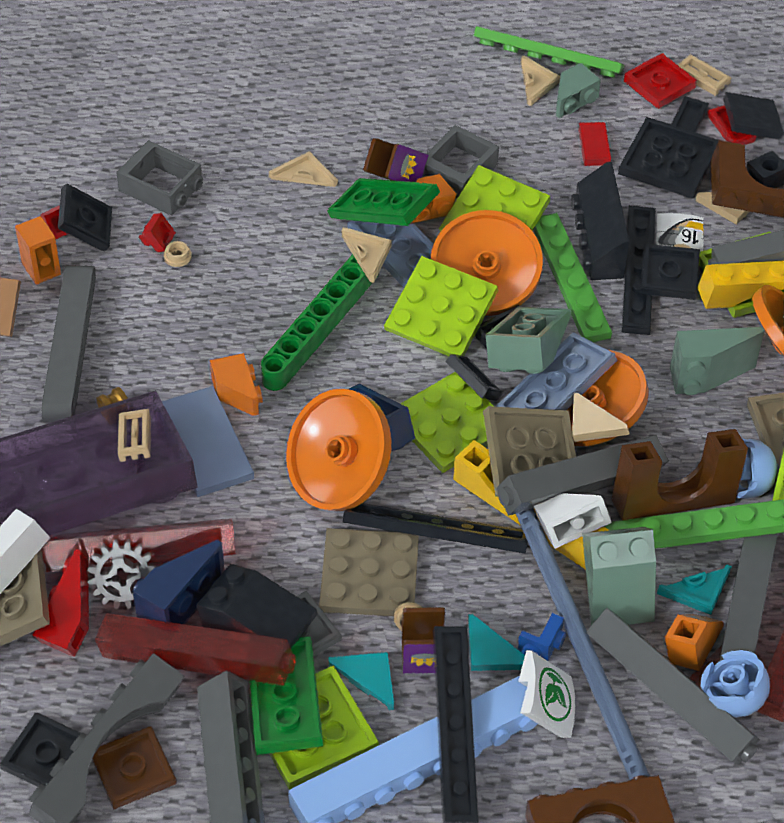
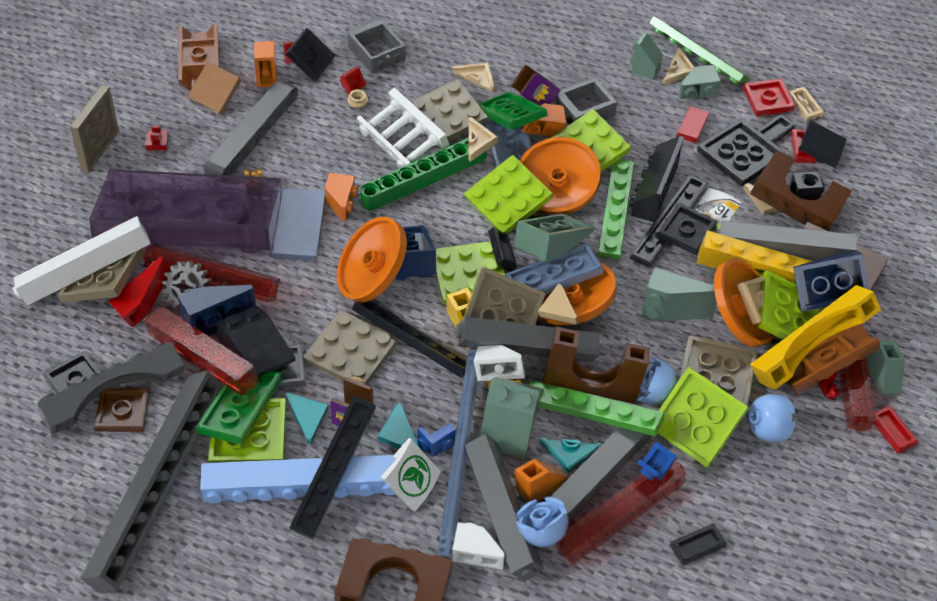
camera: 25 degrees right, 0 degrees up
(135, 448) = (247, 200): tan tile -> none
(266, 249) = (410, 114): none -> white fence
(299, 232) = (451, 109): none -> dark tan plate
(498, 80) = (647, 57): none -> sand green slope
(671, 747) = (476, 547): none -> white slope

